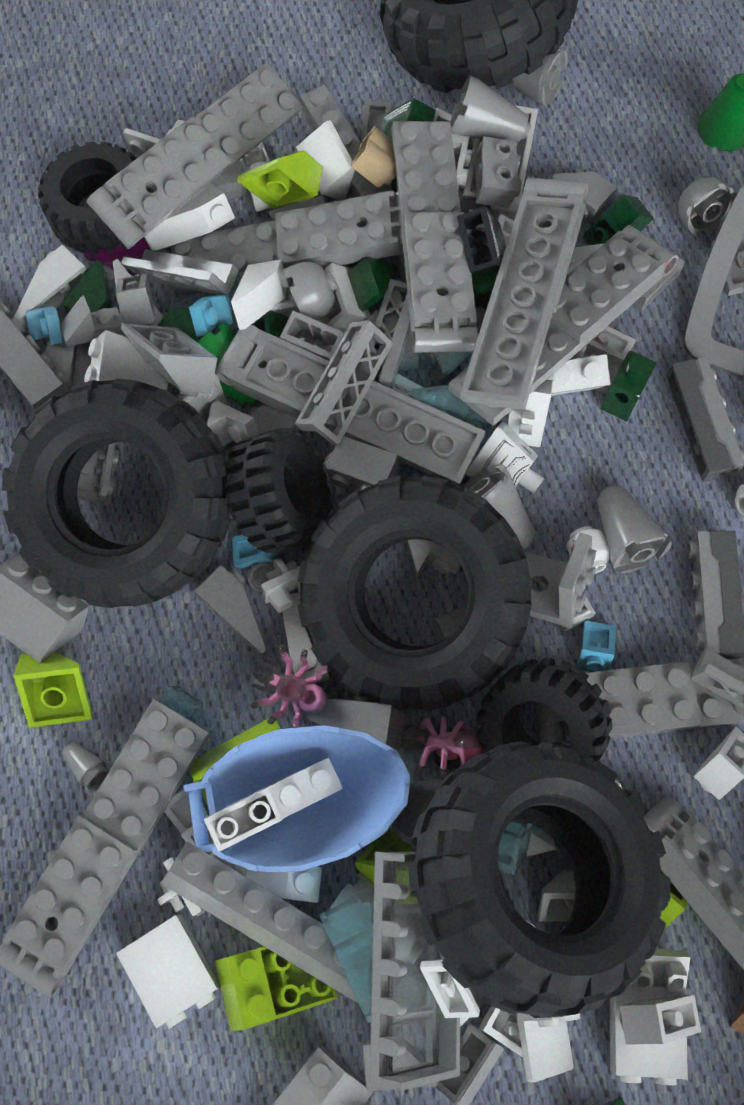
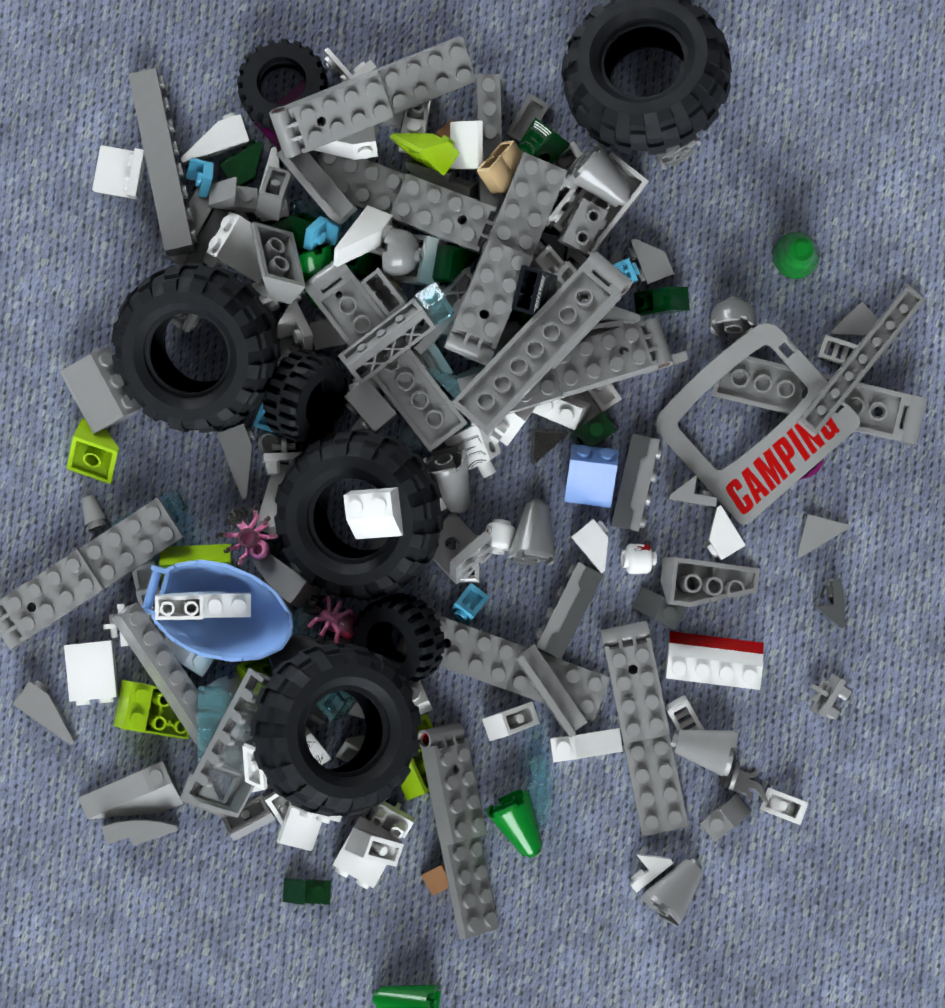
camera: 25 degrees right, 15 degrees up
(127, 1057) = (43, 708): none -> light grey slope
(381, 312) = (434, 303): none -> clear light blue slope
(439, 562) = (374, 513): none -> white slope
(575, 424) = (543, 441): none -> clear smoke slope
(656, 426) = (591, 475): none -> brick
(699, 506) = (593, 543): none -> white slope

